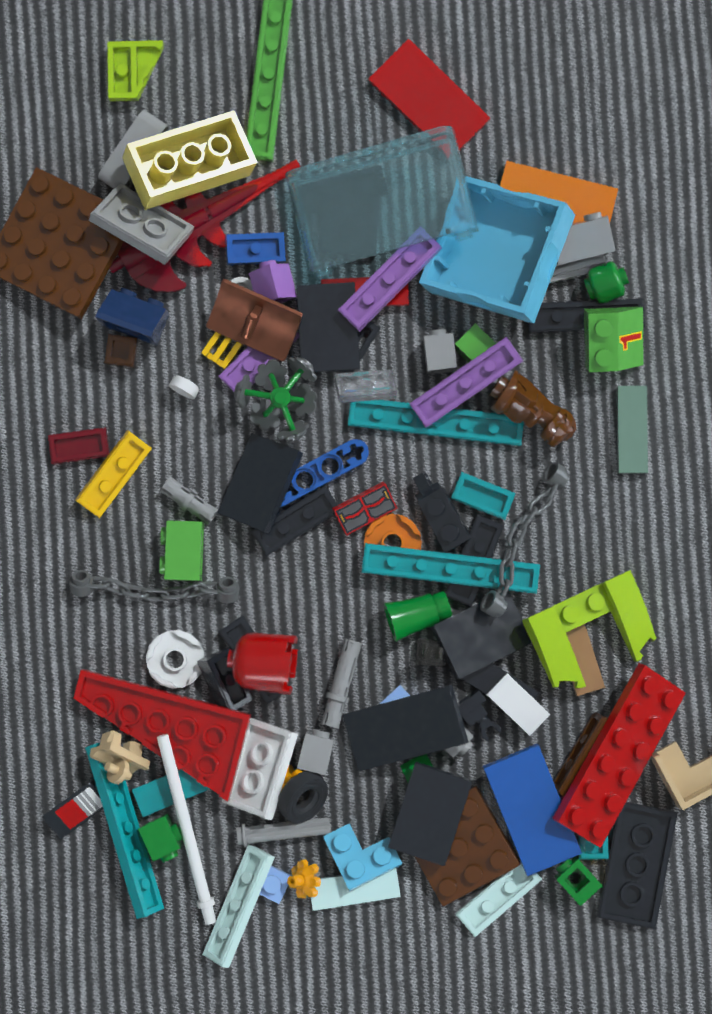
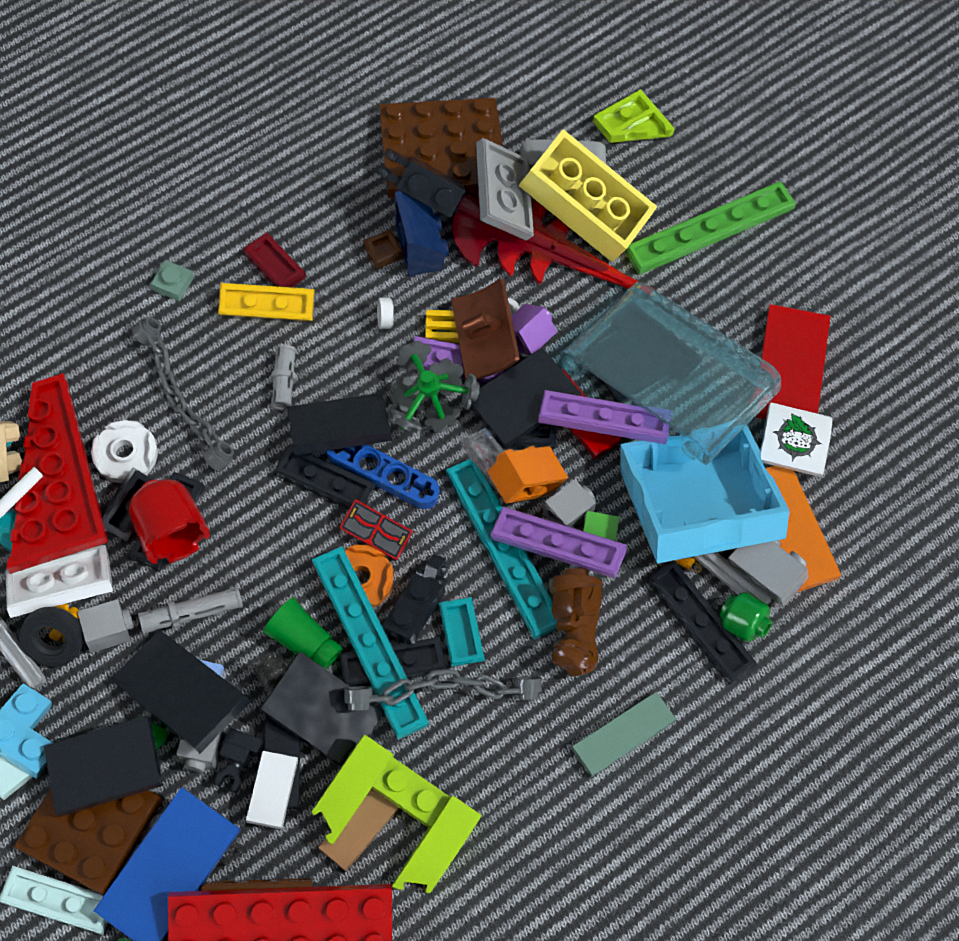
camera: 50 degrees right, 20 degrees down
(44, 536) = (172, 280): none -> sand green plate
(98, 285) = (424, 182): none -> black hinge
(182, 551) = (232, 396): bright green brick -> none
(254, 248) = (547, 292): blue plate -> none
(397, 368) = (527, 473): none -> orange brick
(495, 143) = (796, 439): none -> white slope
(613, 338) = (698, 655): bright green slope -> none

